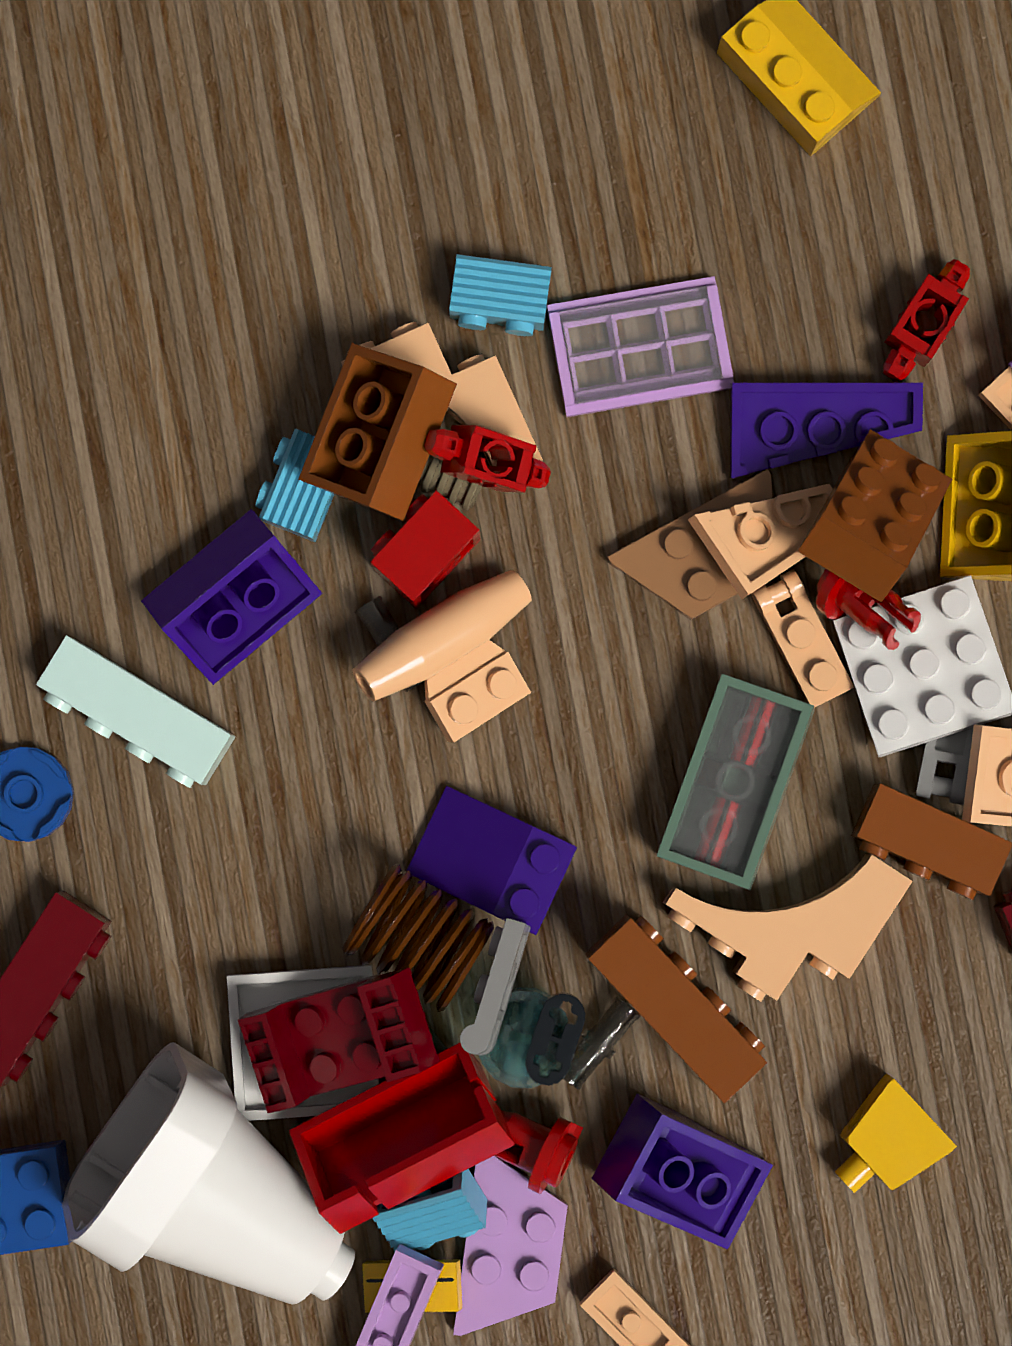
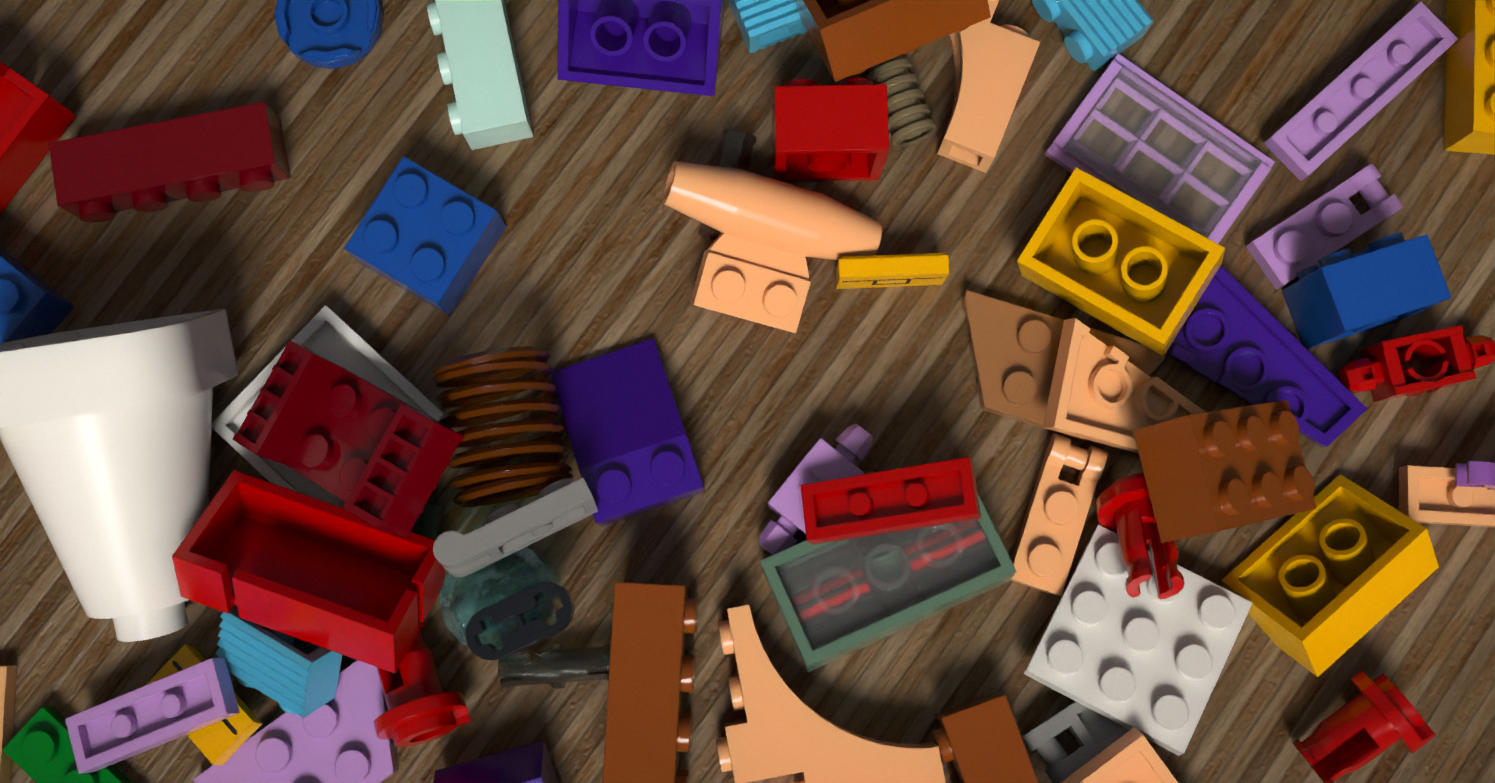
camera: 45 degrees right, 5 degrees down
(243, 870) = (426, 236): none -> blue brick
(460, 458) = (979, 122): red piece -> none
(550, 593) = (891, 270): none -> yellow tile
(643, 777) = (818, 465): none -> lavender piece
(685, 448) = (1120, 261): none -> yellow brick
(698, 742) = (890, 501): none -> red hinge
(722, 175) = (1360, 91): none -> lavender plate
(784, 288) = (1322, 227): none -> lavender plate
(854, 309) = (1365, 289): none -> blue brick

